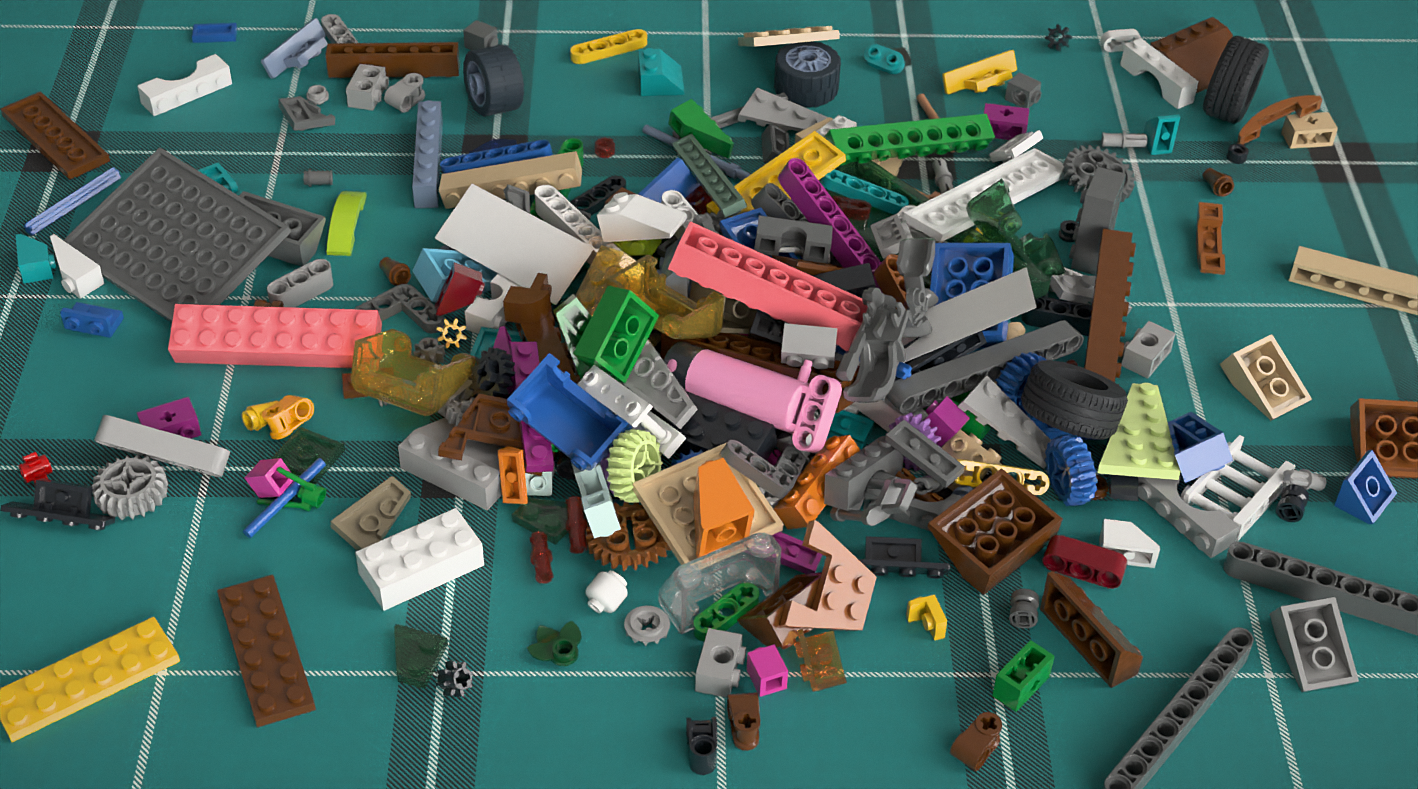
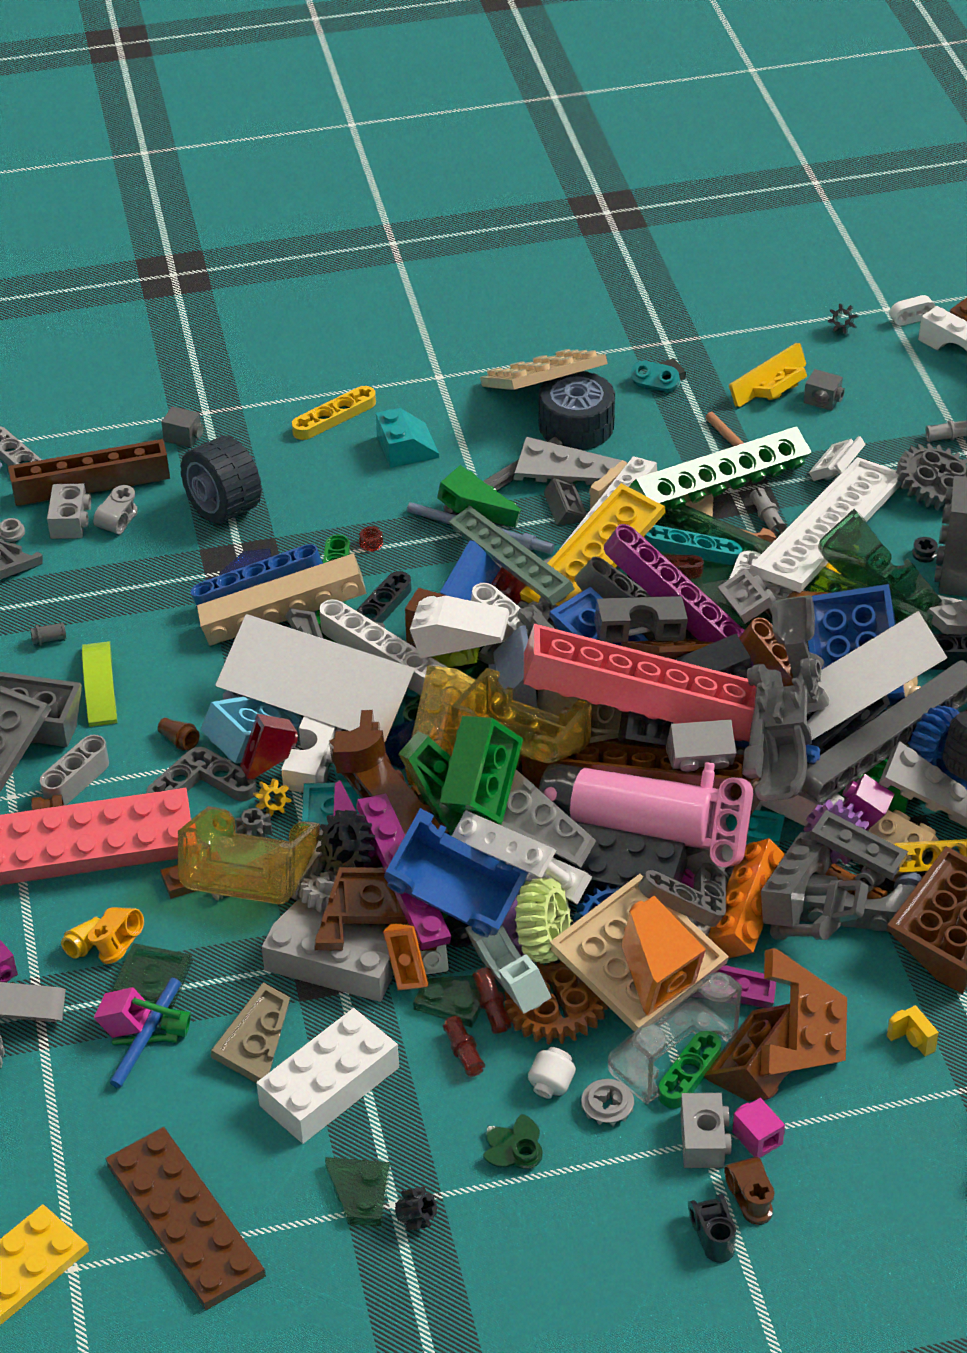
camera: 10 degrees left, 0 degrees up
(427, 155) = (170, 583): sand blue brick -> none
(821, 660) = (814, 1104): clear orange bracket -> none
(900, 557) = (861, 967): black bracket -> none
(1007, 120) = (818, 428): magenta brick -> none

